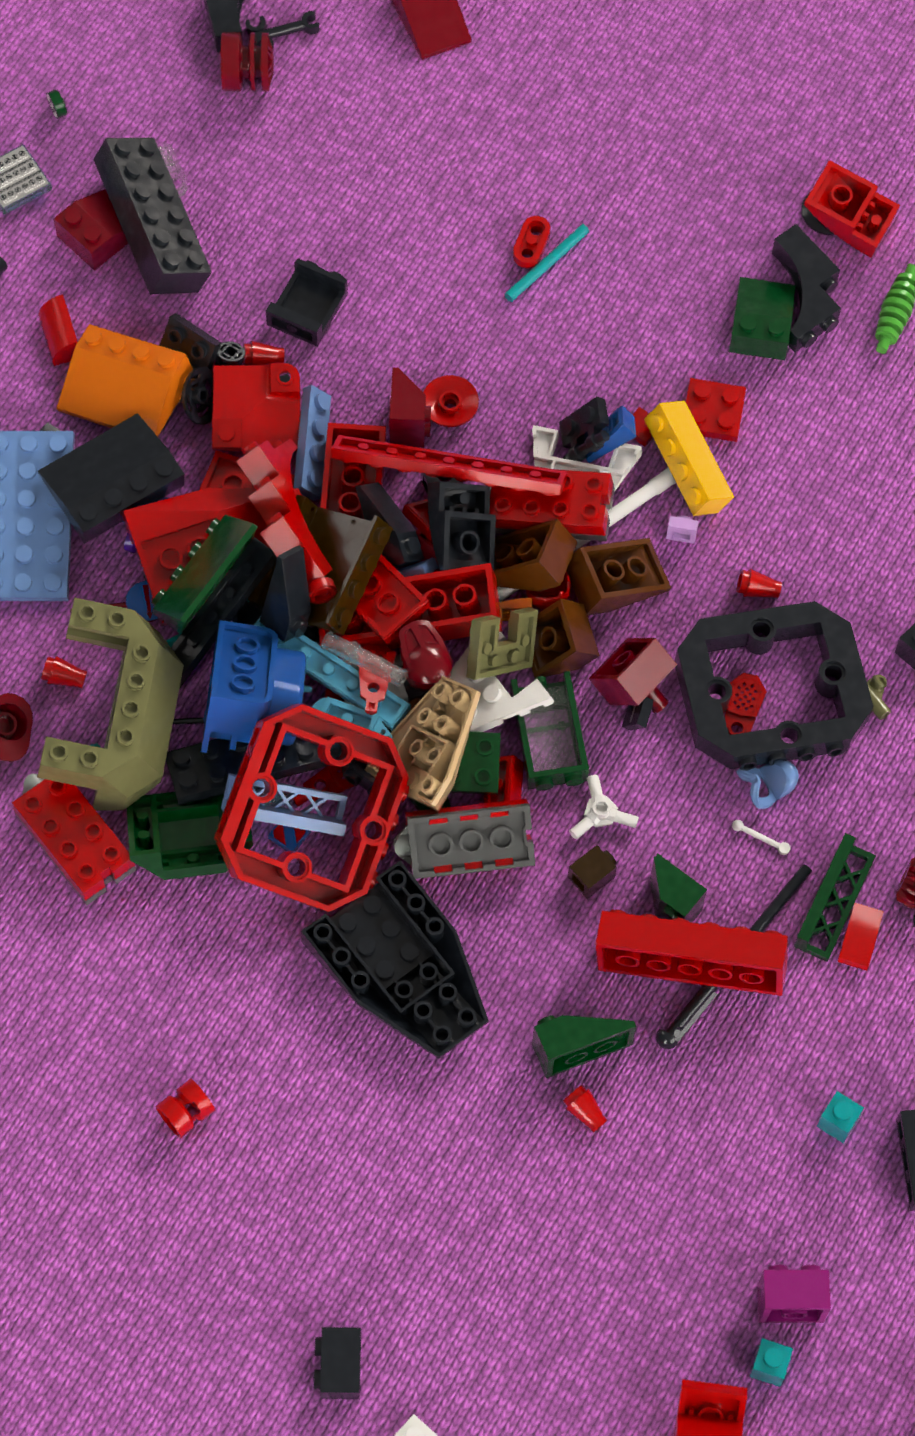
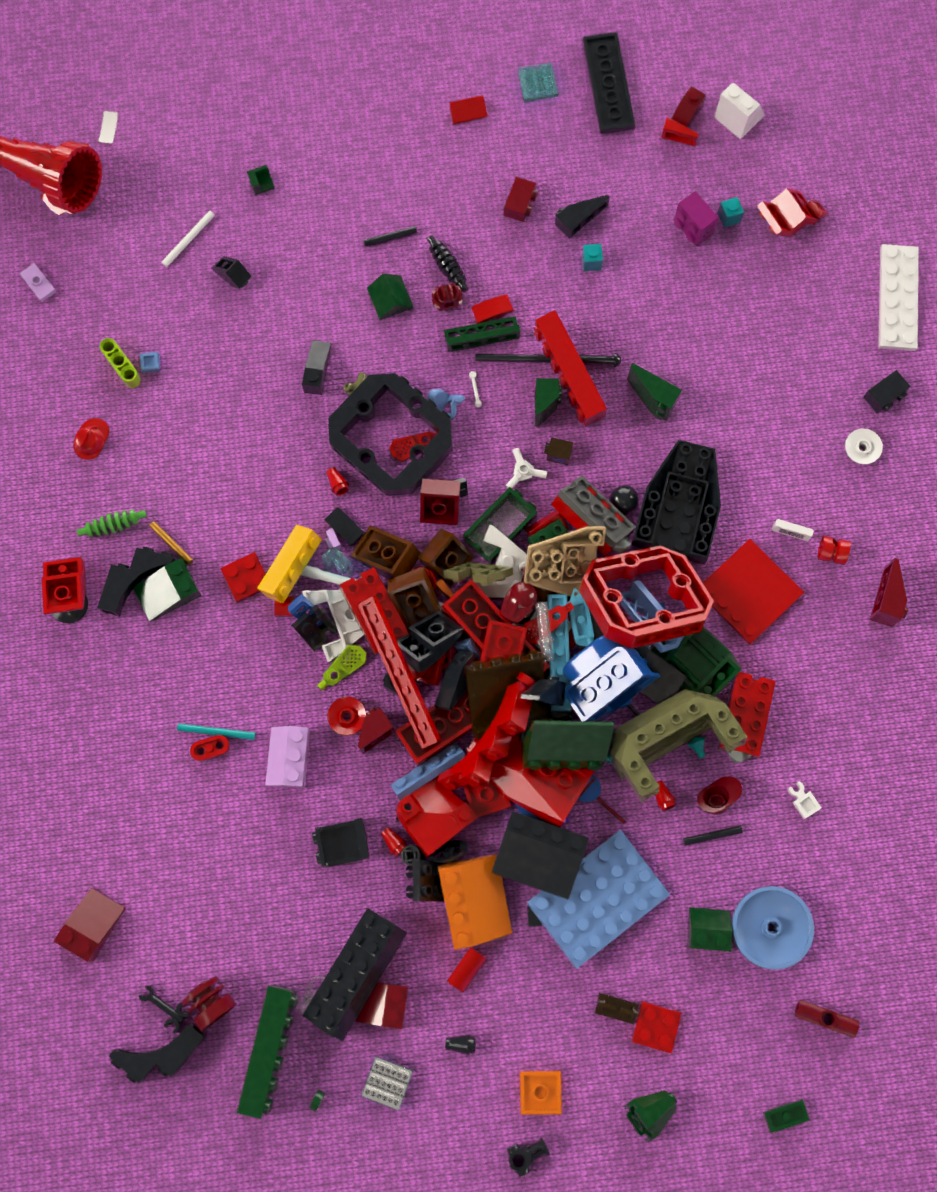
camera: 125 degrees left, 10 degrees up
(62, 1120) = (890, 597): none -> dark red slope
(148, 85) = (266, 1051): none -> dark green brick
(221, 969) = (751, 591): none -> red plate
(254, 1080) = (792, 530): none -> white tile
(290, 1250) = (867, 439): none -> white dish
(451, 313) = (288, 757): none -> lavender slope
(465, 906) = (624, 499): none -> black hair
(515, 439) = (341, 668): none -> lime piece
(585, 1108) = (679, 372): red cone -> none
(646, 510) = (335, 557): none -> clear light blue bracket
(692, 557) = (344, 526): none -> black tile
(822, 358) = (171, 543): none -> pearl gold bar

